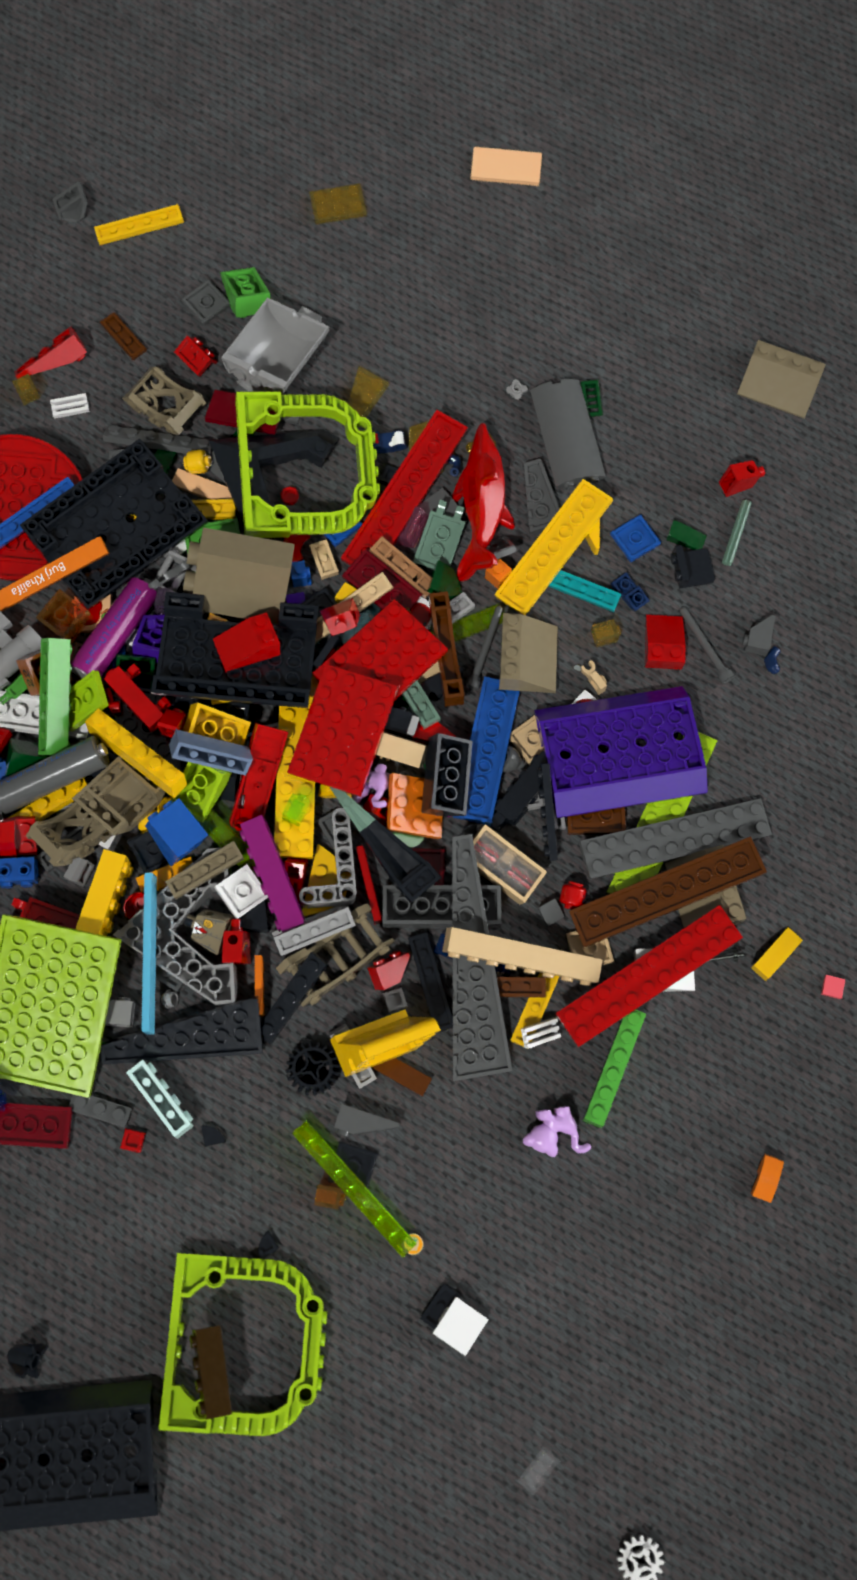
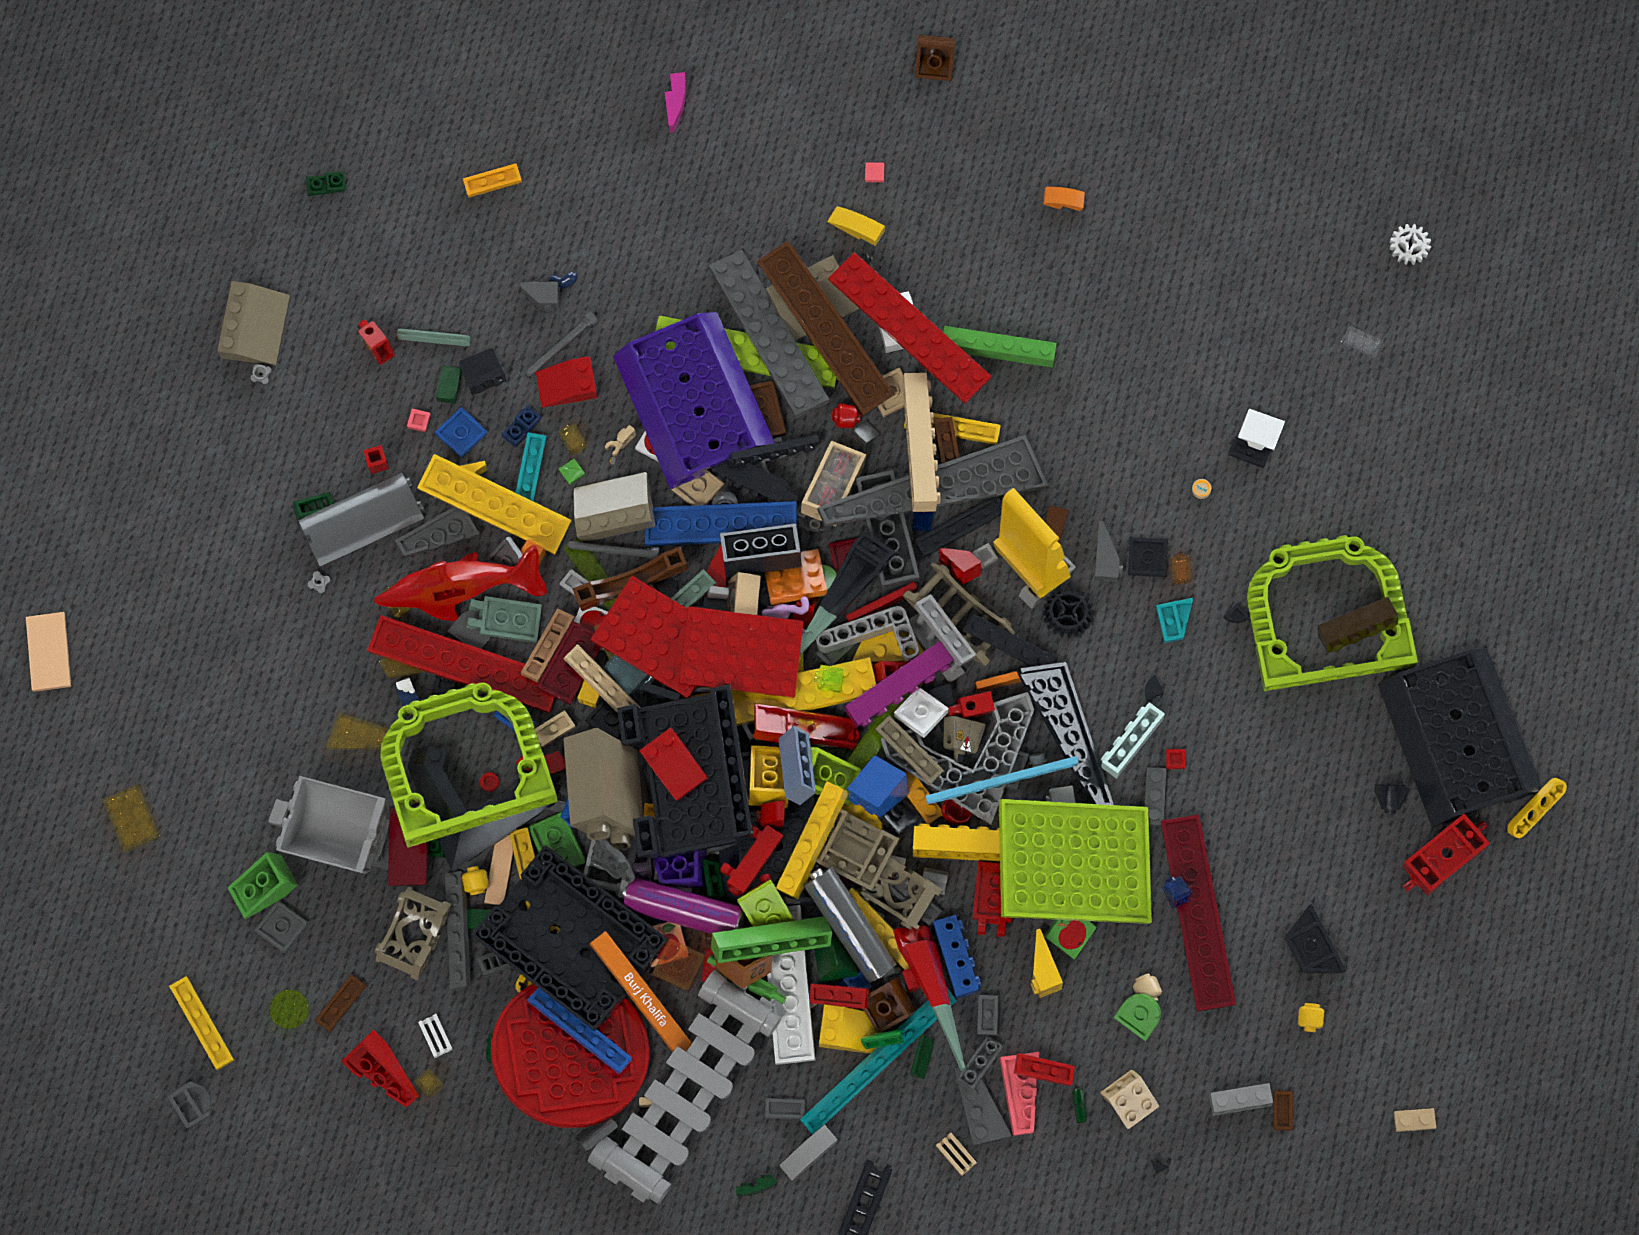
camera: 95 degrees left, 0 degrees up
(130, 295) = (294, 1012): none -> clear neon green tile
(195, 355) = (349, 918): red bracket -> none
(278, 1177) = (1174, 619): none -> teal wing
(340, 617) = (623, 685): red torso -> none
(354, 1189) = (1167, 547): clear neon green tile -> none
(413, 529) = (502, 647): clear pink panel -> none
(444, 580) = (554, 603): dark green slope -> none
(456, 461) = (422, 622): dark blue arm -> none
(545, 1137) = (1077, 394): lavender animal -> none
(554, 1029) = (986, 416): white tile -> none
(574, 628) = (571, 472): none -> bright green tile
(622, 456) = (376, 459): none -> red brick
(655, 502) = (418, 420): none -> coral plate
(731, 374) = (257, 369): none -> light grey plate

